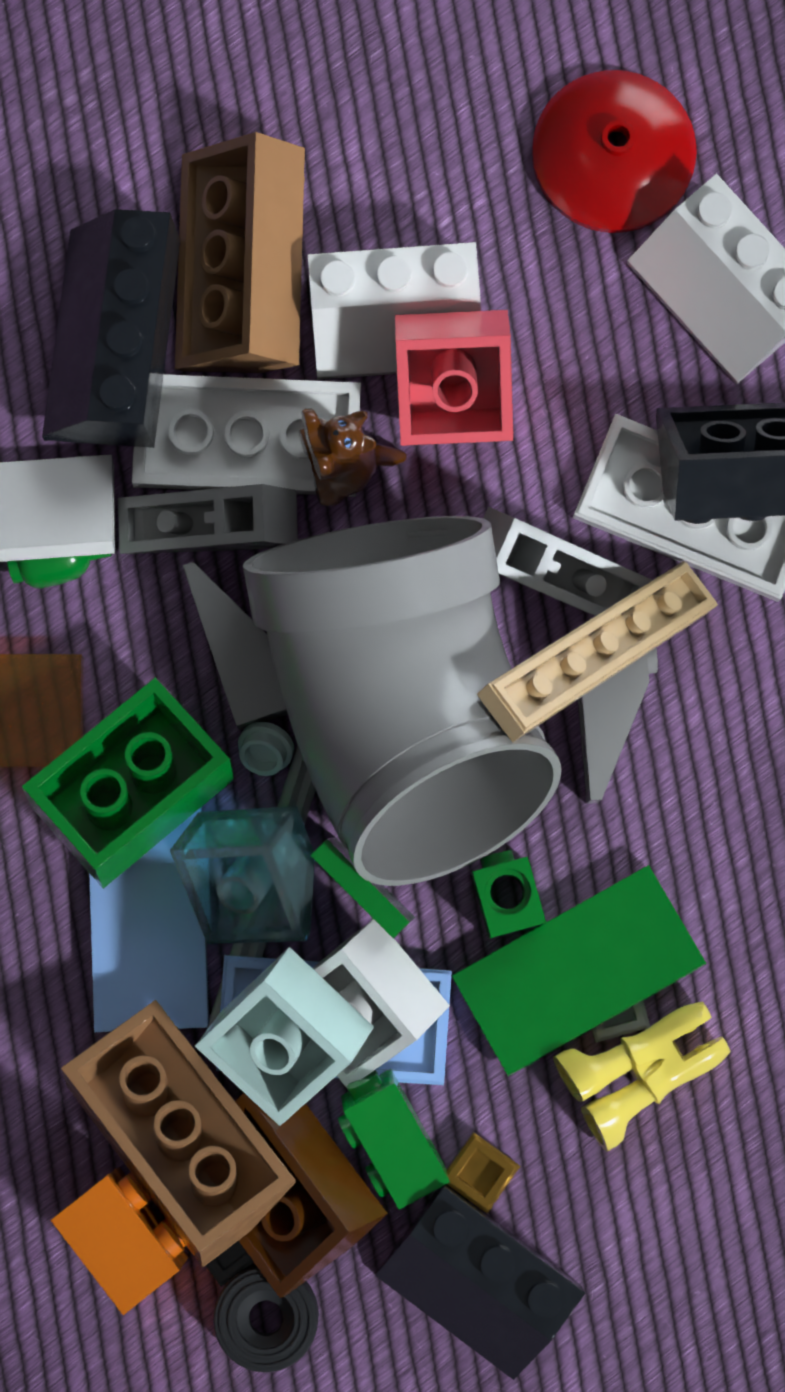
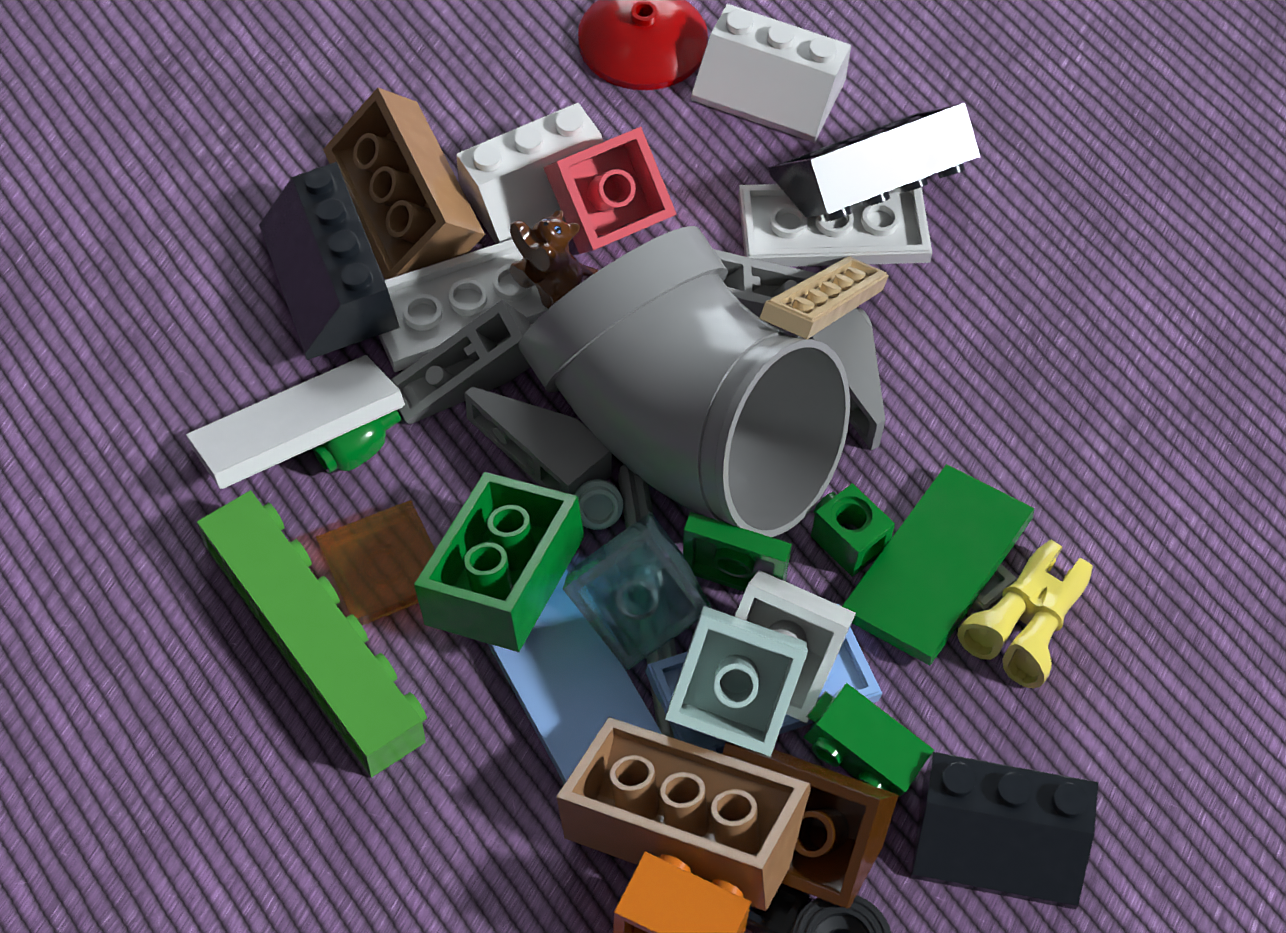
camera: 25 degrees left, 25 degrees down
(481, 1172) = (952, 740): pearl gold tile -> none

